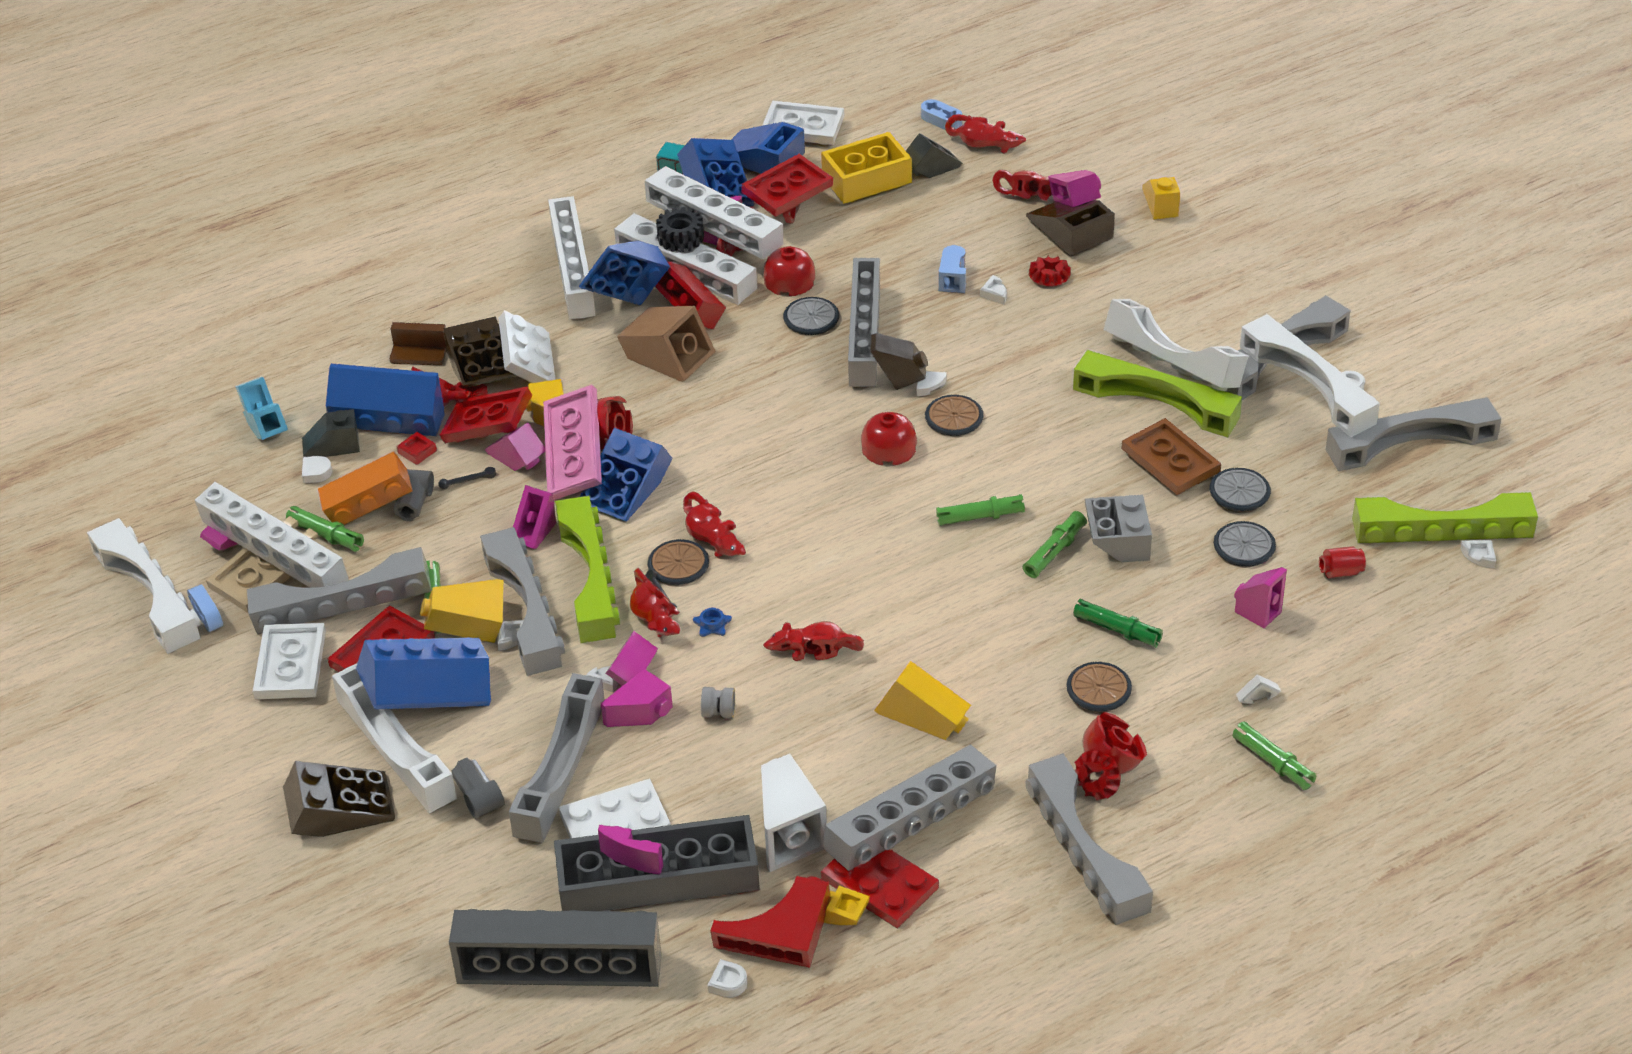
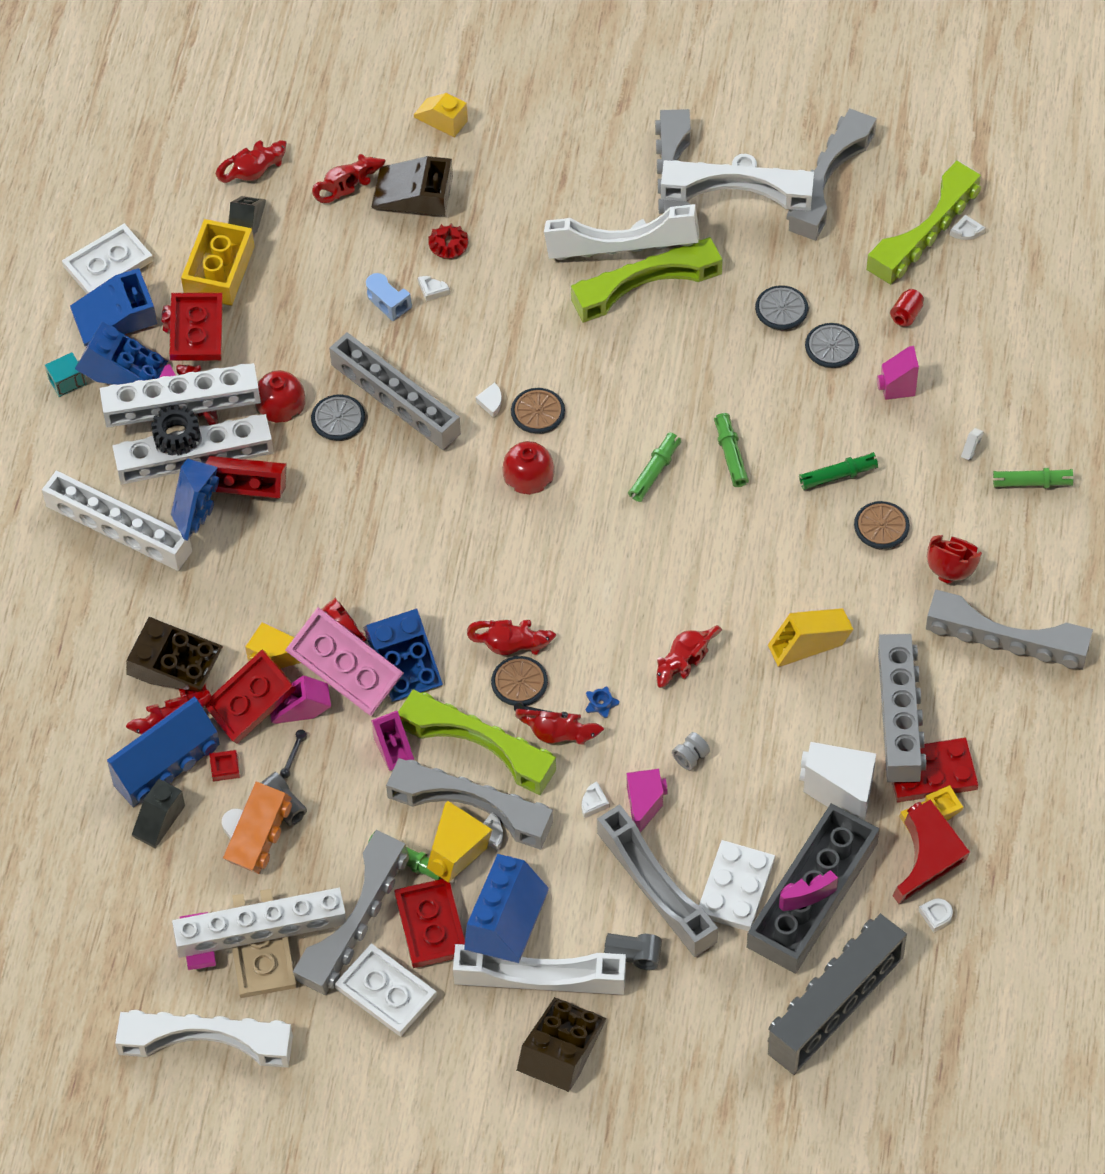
camera: 50 degrees left, 15 degrees up
(205, 608) = (270, 1010): light blue beam -> none
(259, 410) = (84, 845): medium azure brick -> none
(316, 469) = (180, 846): white tile -> none
(332, 531) = (260, 881): bright green pin -> none
(417, 343) = (105, 689): reddish brown panel -> none
(526, 349) = (200, 622): white plate -> none
(631, 658) = (605, 776): dark pink slope -> none
(668, 341) = (280, 526): medium nougat slope -> none
(899, 360) = (465, 400): dark brown slope -> none
(938, 113) = (194, 169): light blue beam -> none
(1075, 187) = (394, 159): dark pink slope -> none
(1095, 761) = (964, 577): red gear -> none
(1120, 526) = (760, 399): light grey slope -> none
(1171, 456) = (714, 320): dark orange plate -> none

